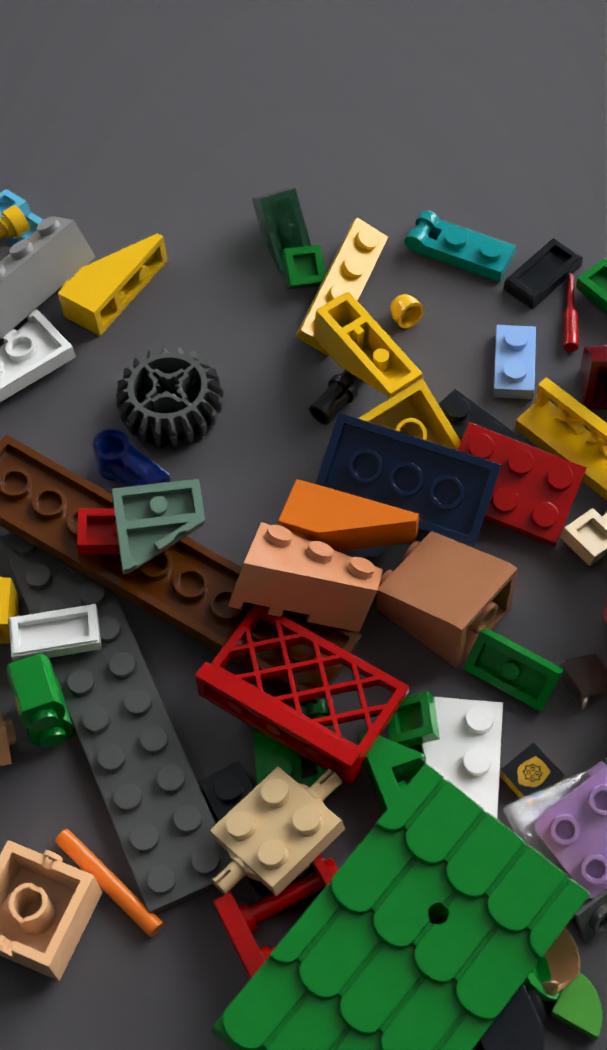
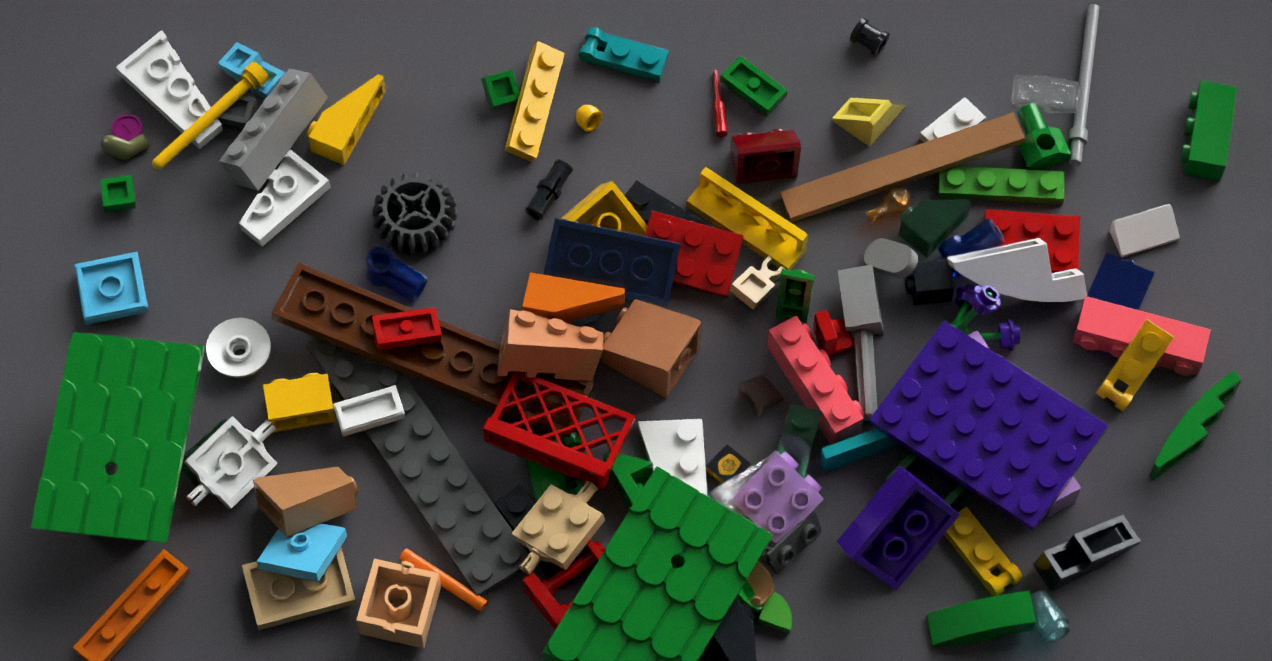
camera: 15 degrees left, 5 degrees up
(39, 701) = (371, 461): green brick -> none
(155, 518) = (432, 317): sand green wing -> none
(281, 222) = (476, 51): clear green slope -> none
(363, 346) = (562, 158): yellow slope -> none
(414, 721) = (642, 439): green plate -> none
(513, 669) = (706, 393): green plate -> none
(514, 362) = (679, 151): light blue plate -> none
(543, 273) = (693, 71): black tile -> none

